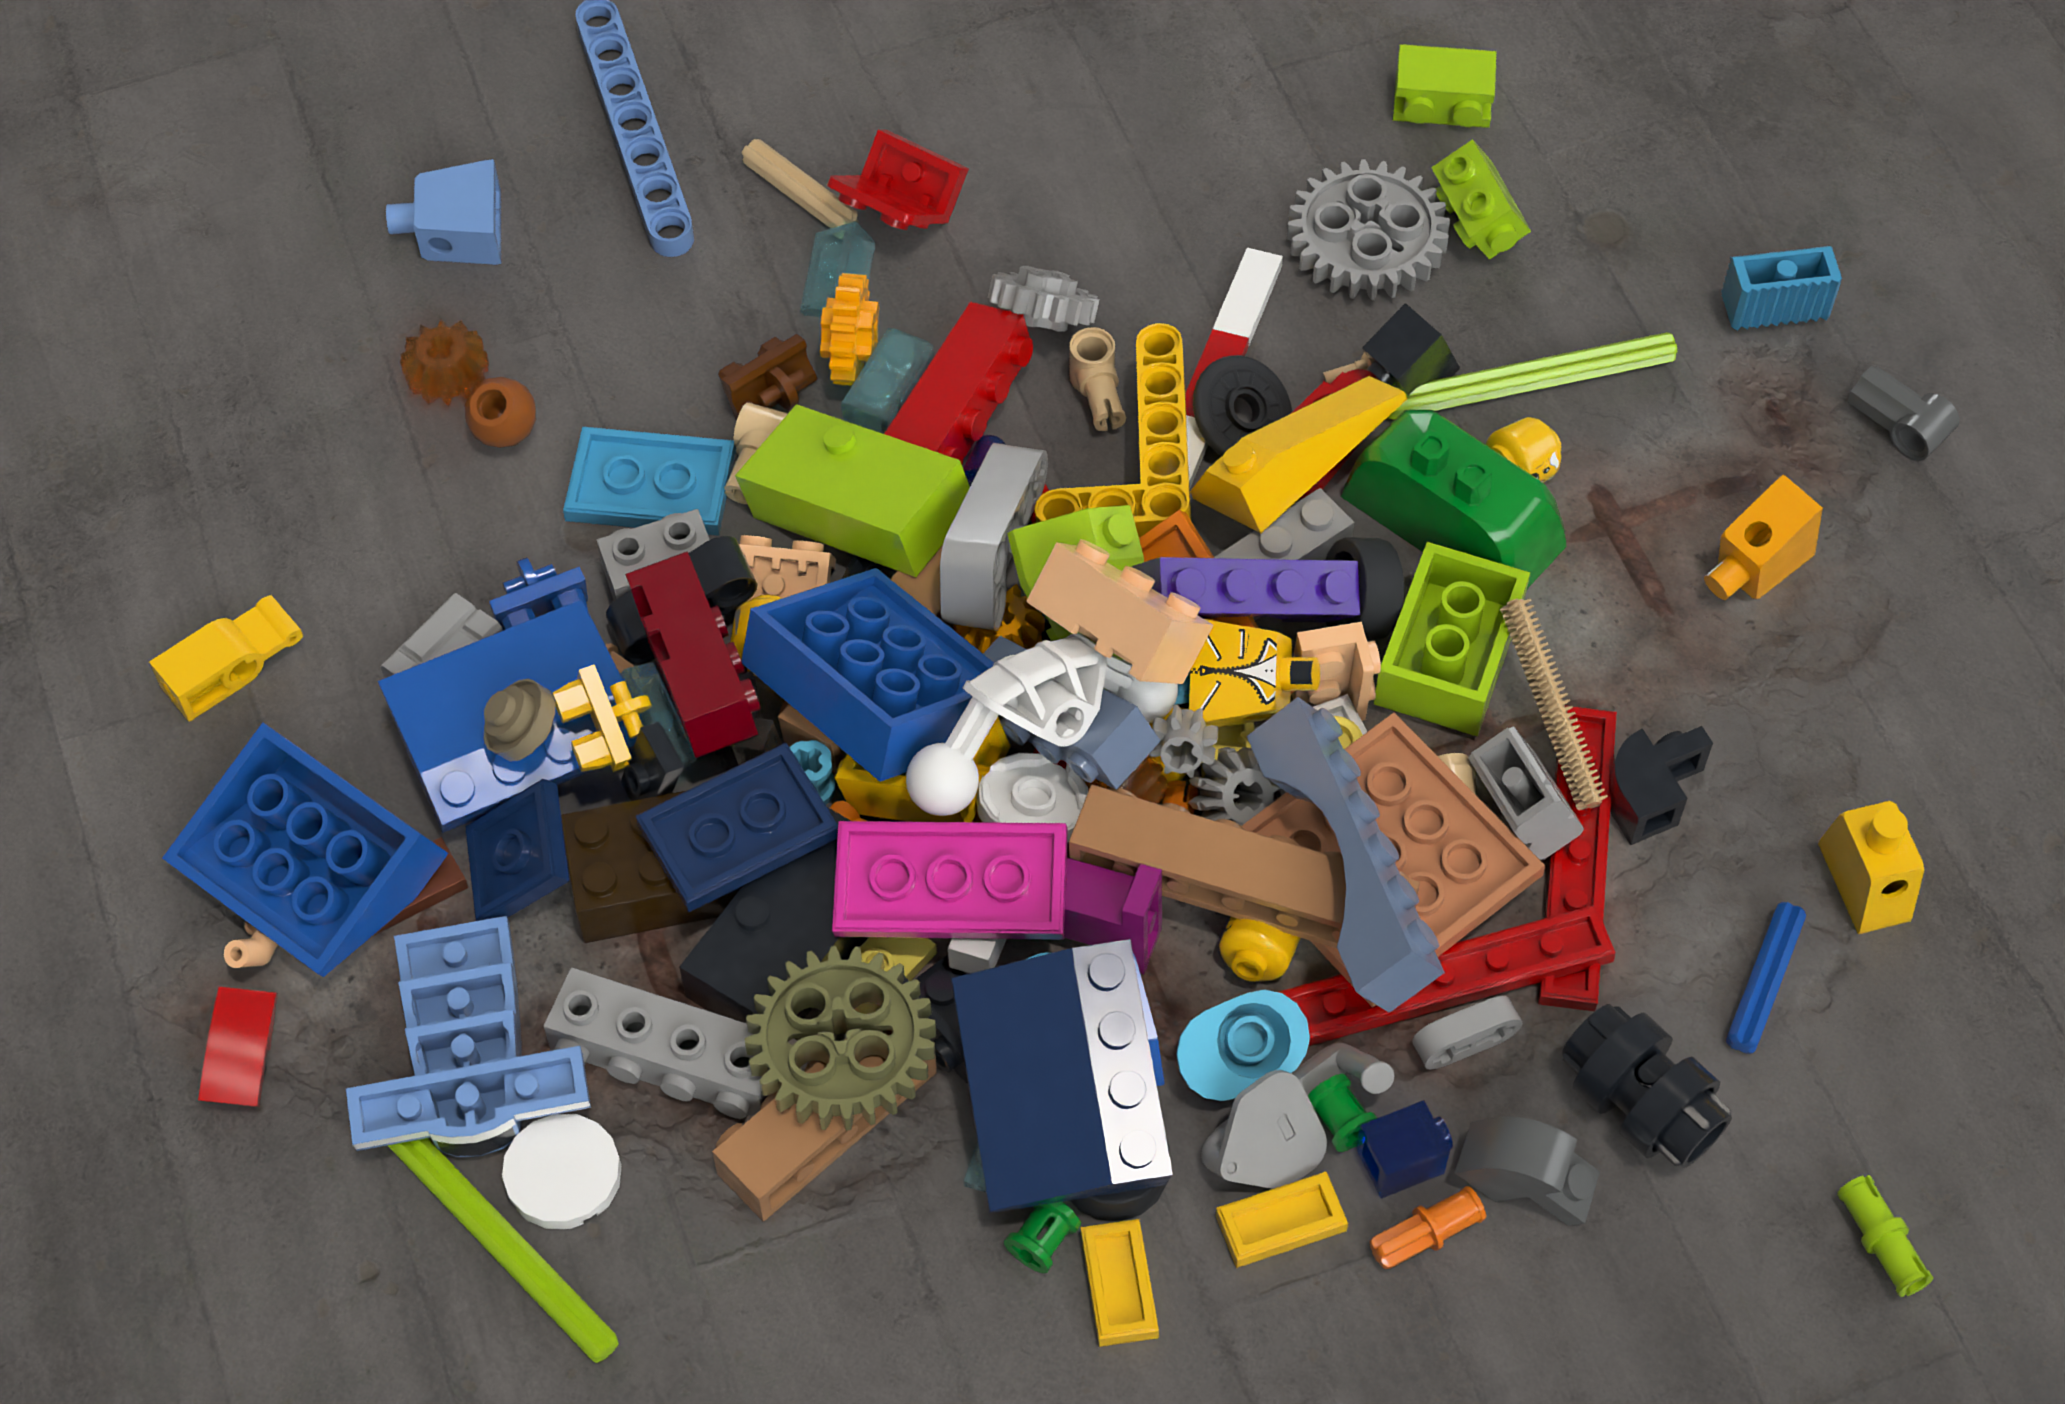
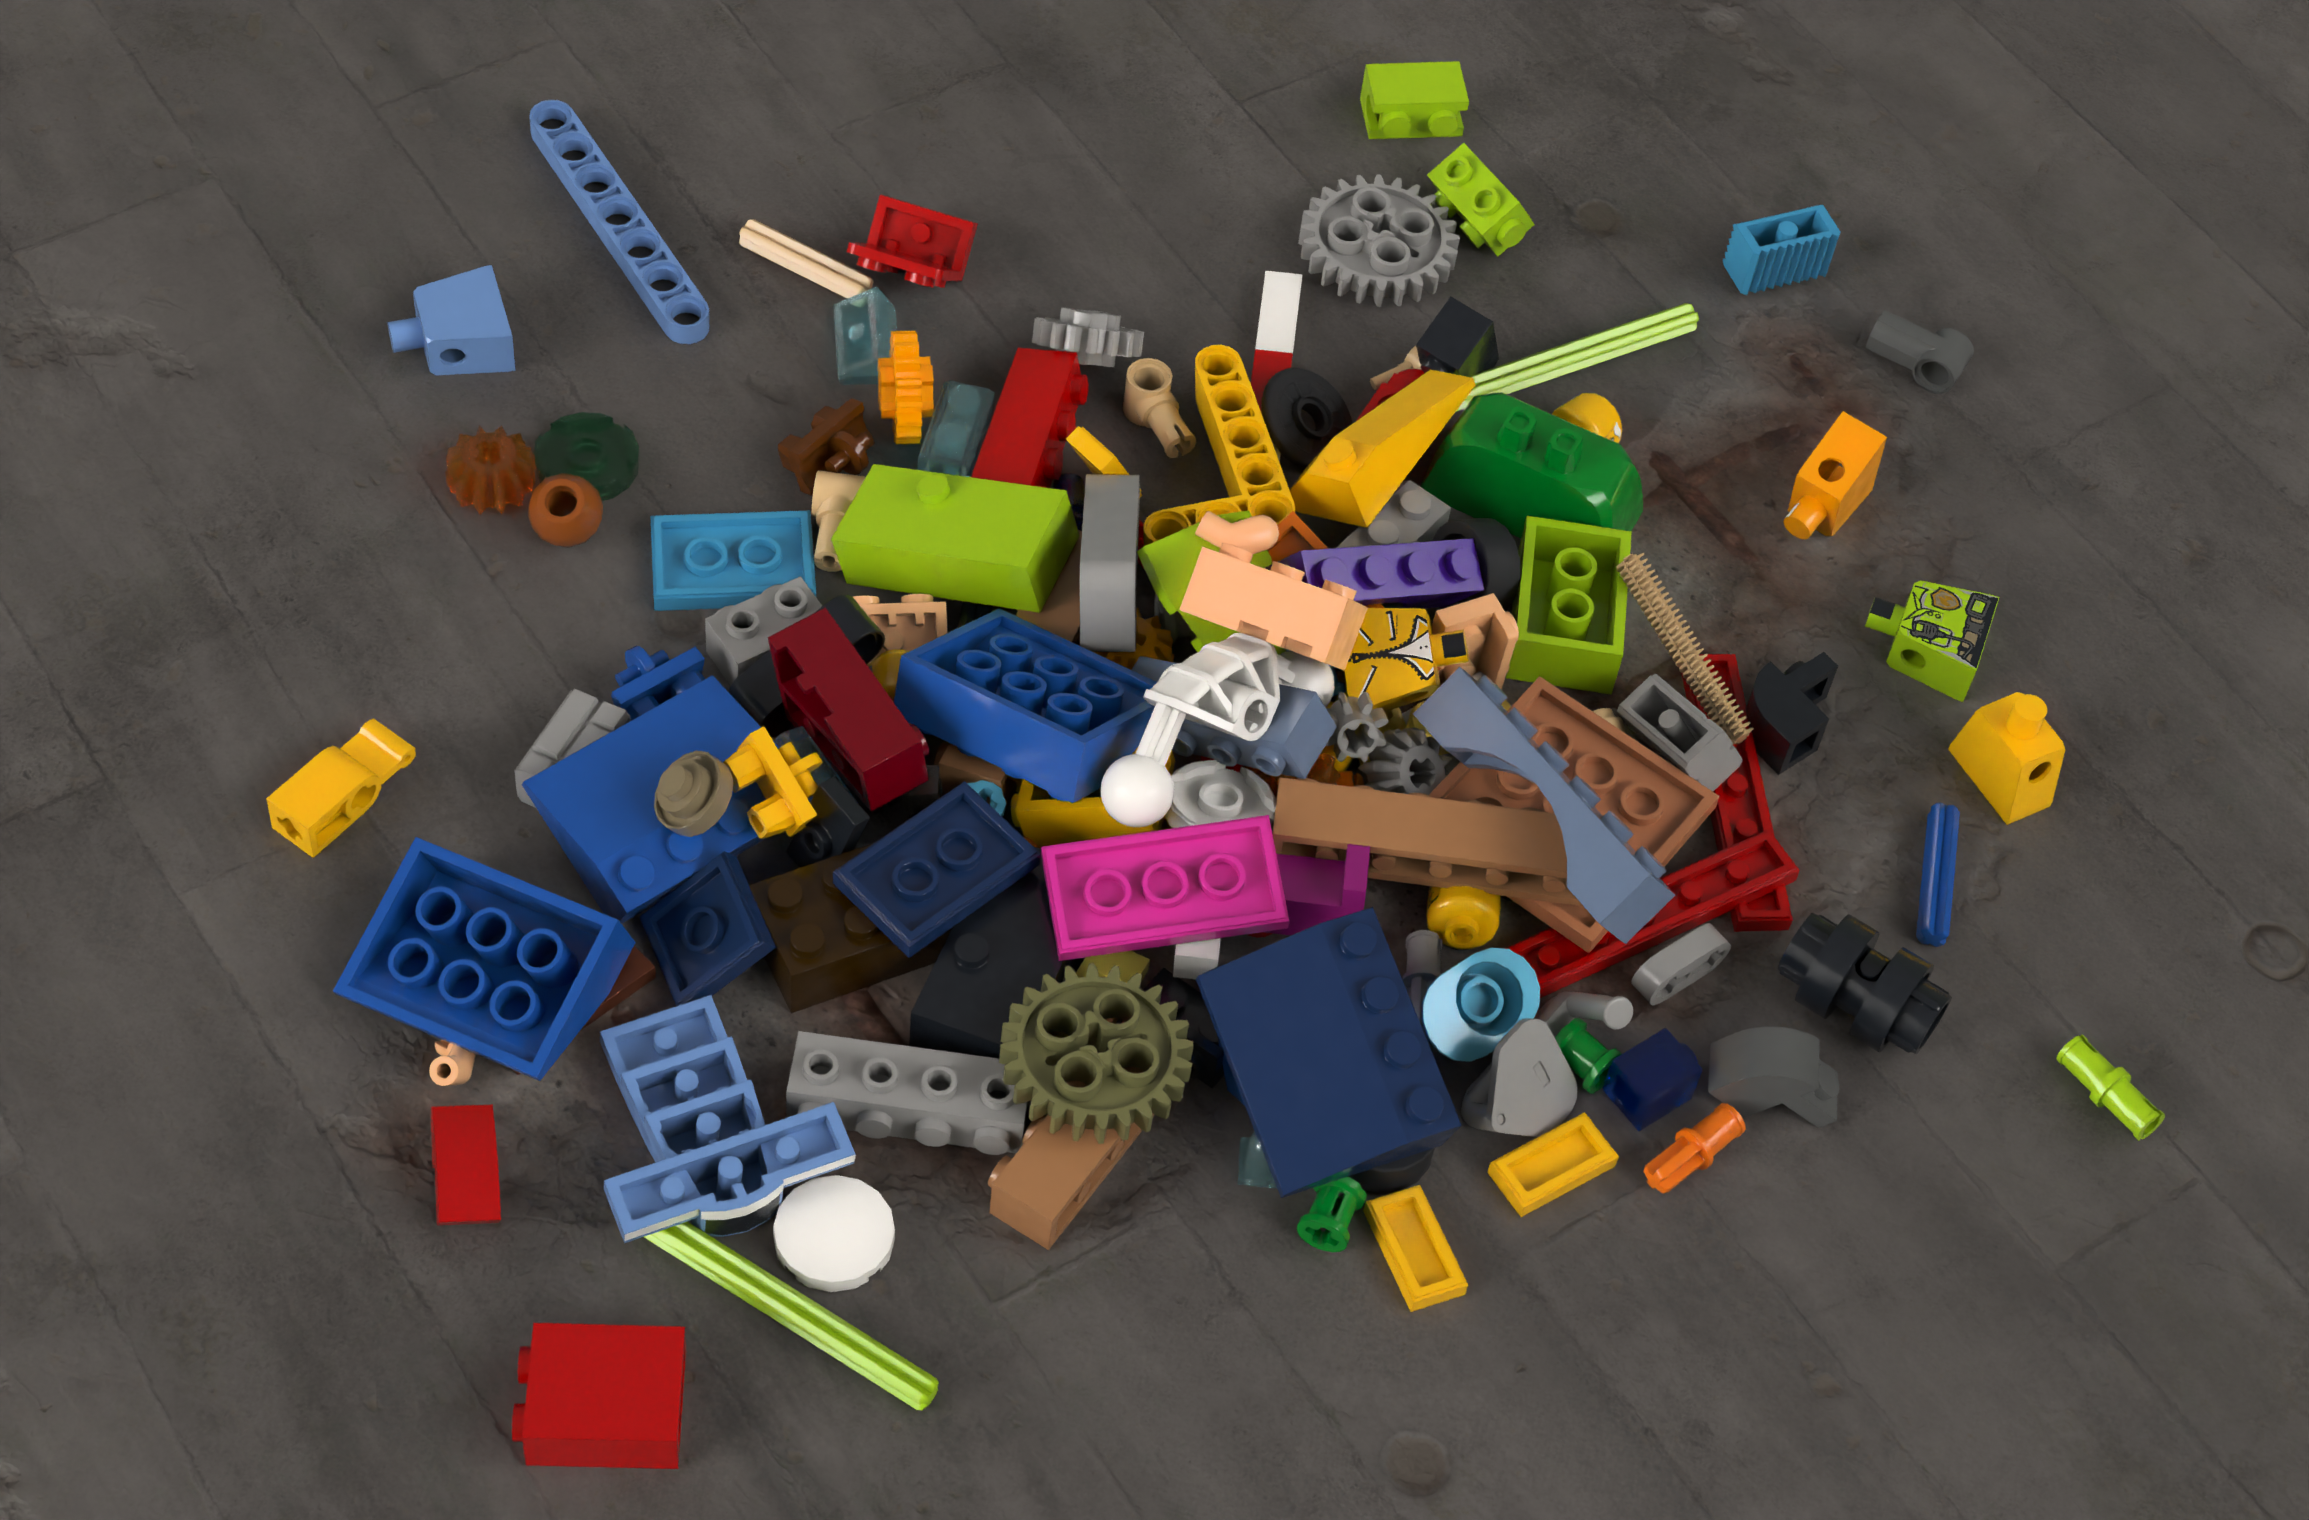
camera: 20 degrees left, 5 degrees down
(301, 1296) = (601, 1396): none -> red brick
(544, 357) = (589, 448): none -> clear green tile
(1019, 430) = (1095, 454): none -> yellow tile
(1111, 534) = (1250, 534): none -> light nougat arm
(1205, 992) = (1422, 966): none -> light grey axle
(1834, 721) = (1936, 634): none -> lime torso

